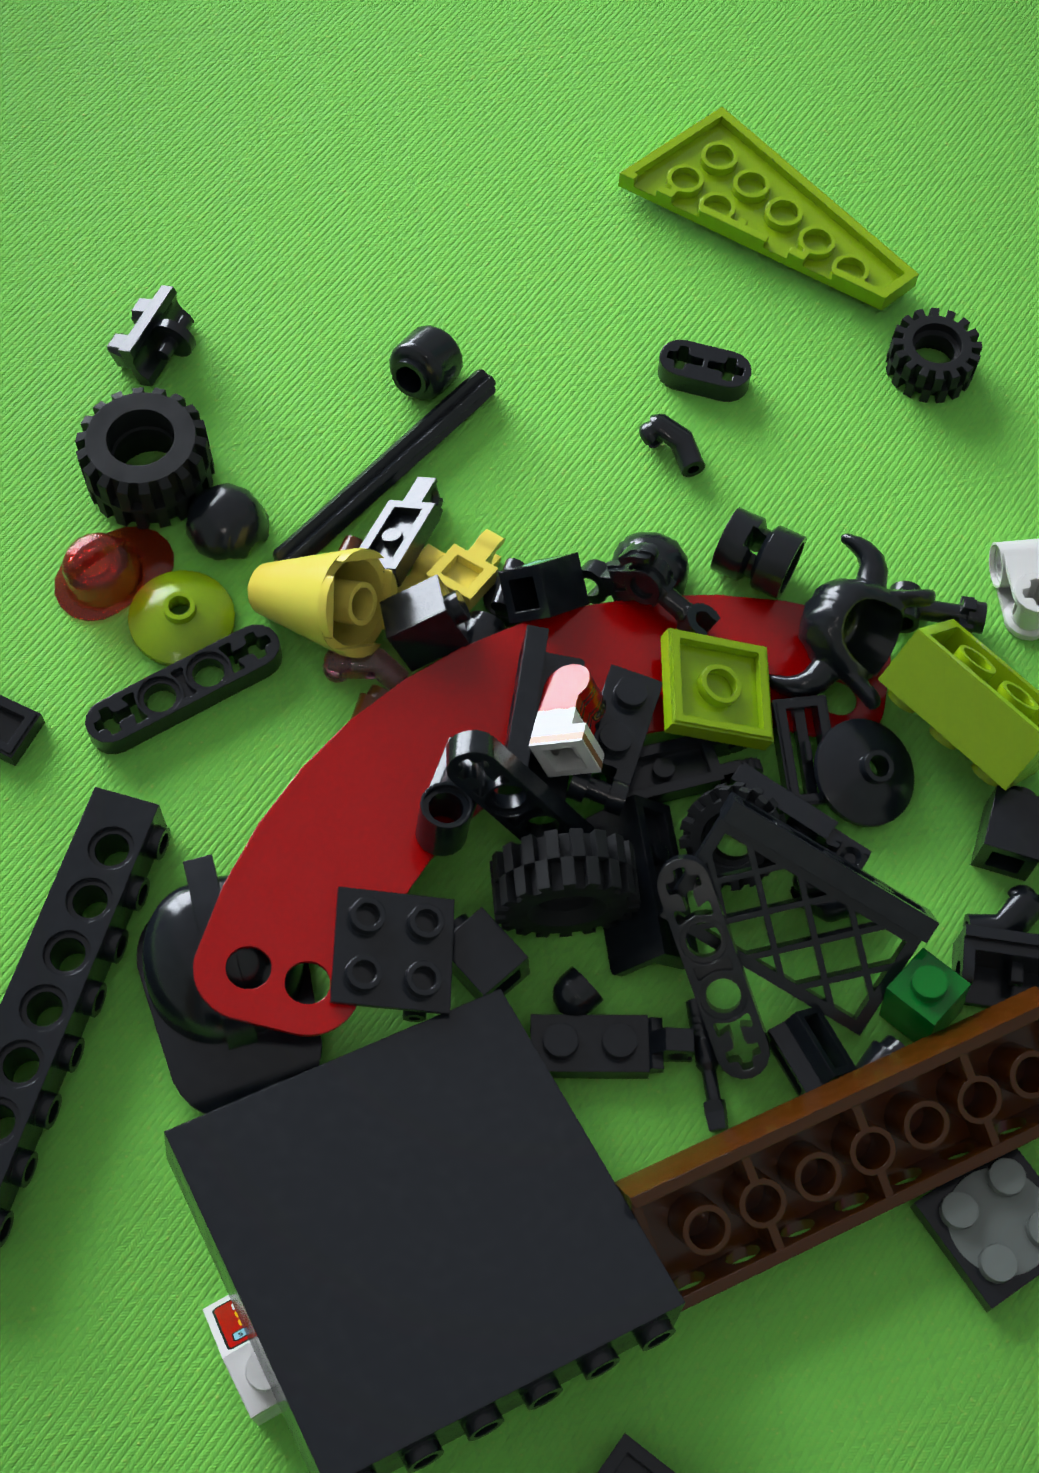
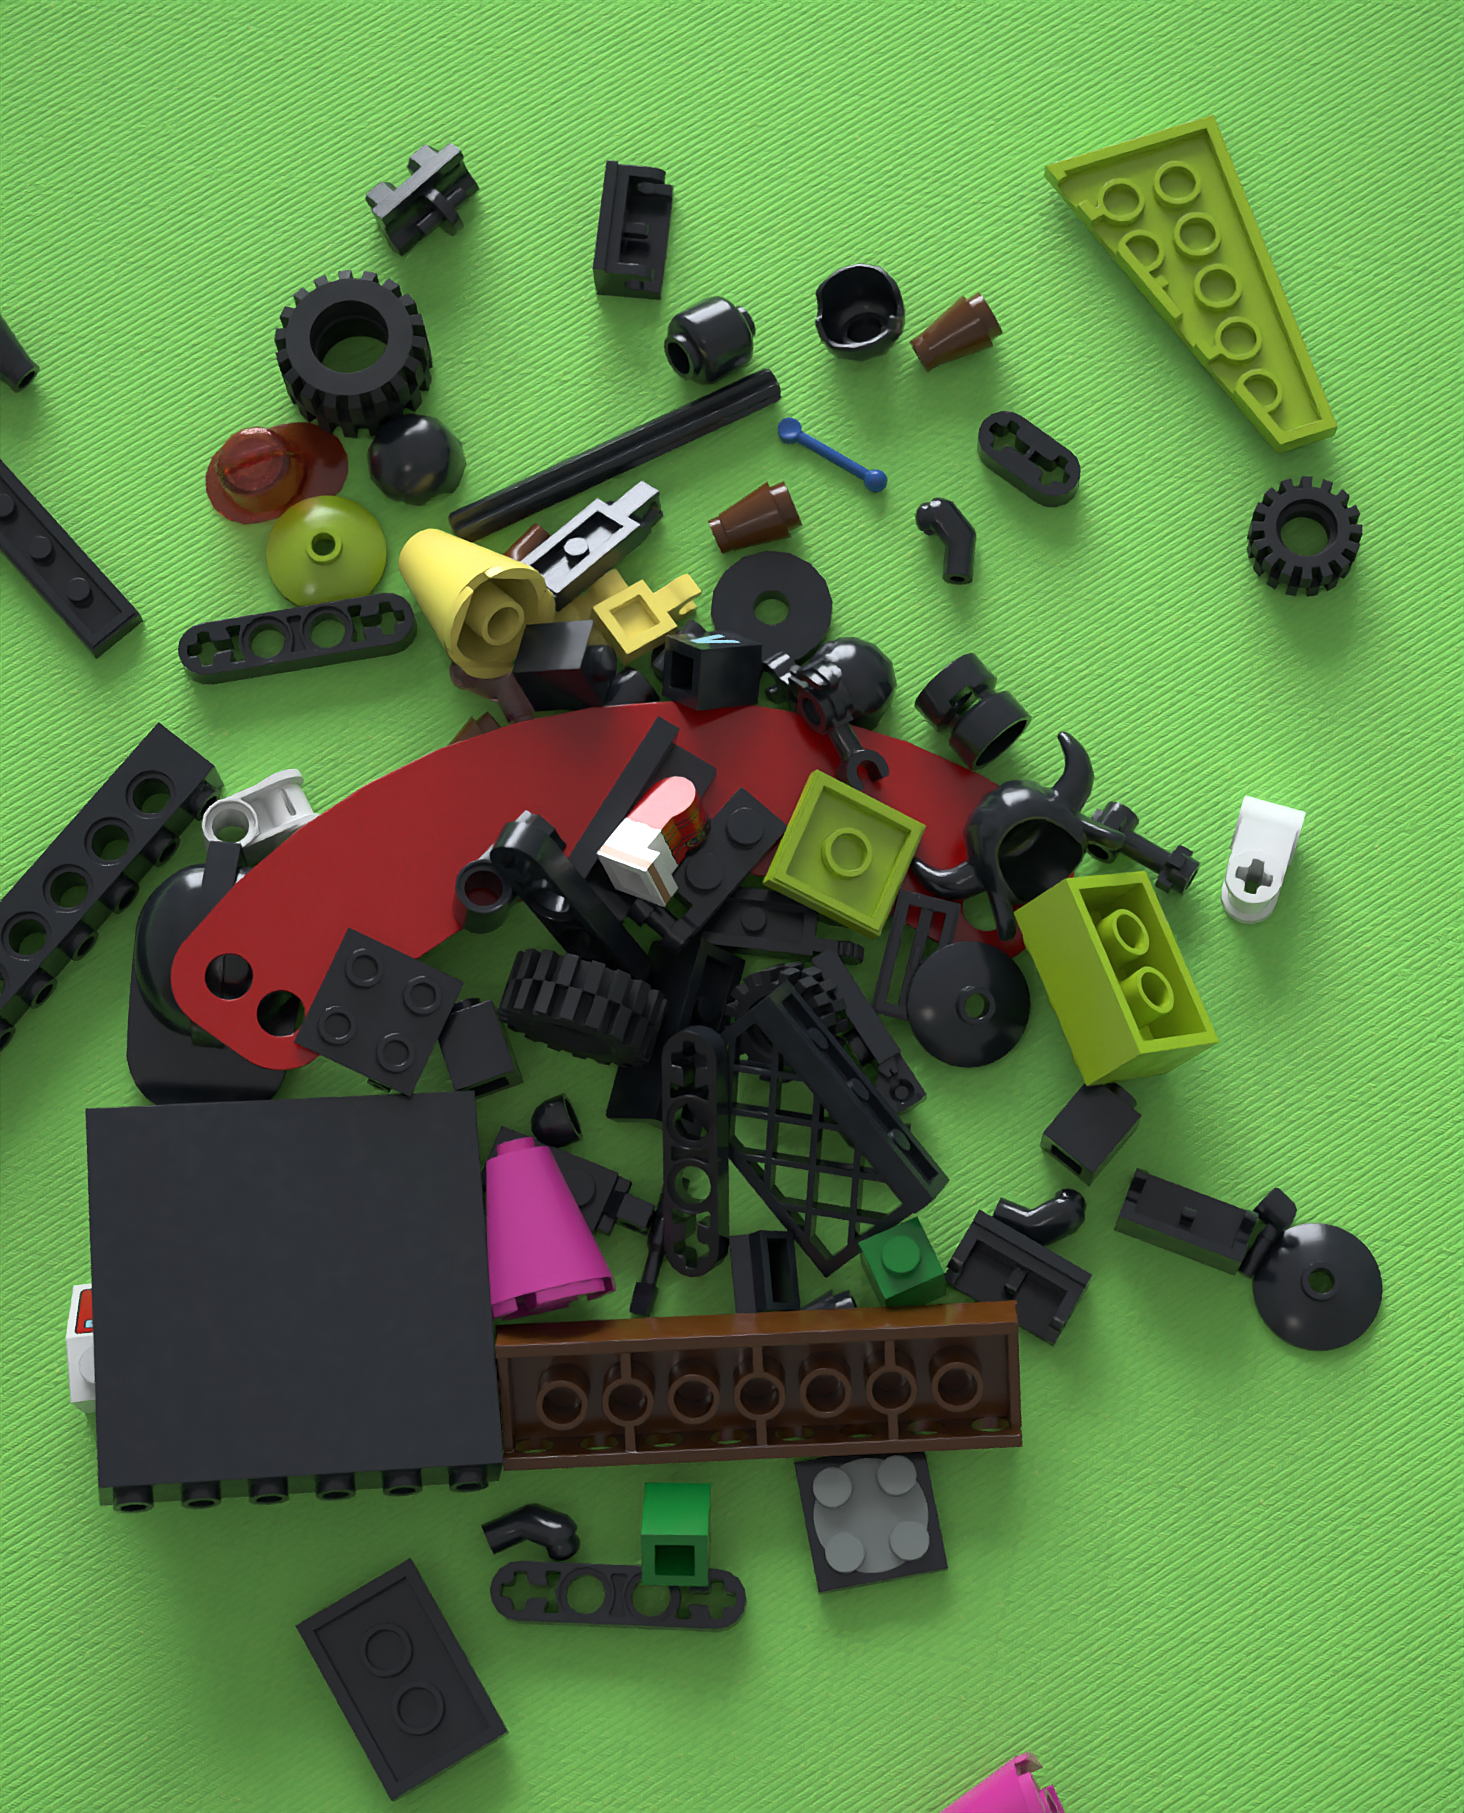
camera: 30 degrees right, 10 degrees up
(216, 829) = (261, 814): none -> white piece
(329, 310) = (632, 231): none -> black hinge
(515, 411) = (791, 432): none -> blue hinge
(522, 474) = (756, 519): none -> reddish brown cone
(532, 306) = (859, 312): none -> black hair
(562, 514) = (779, 578): none -> black tile
(611, 299) = (958, 332): none -> reddish brown cone
(613, 1088) = (537, 1236): none -> dark pink cone
(719, 1352) = (538, 1525): none -> black arm
(824, 1397) = (618, 1606): none -> black beam
(853, 1307) = (676, 1534): none -> green brick

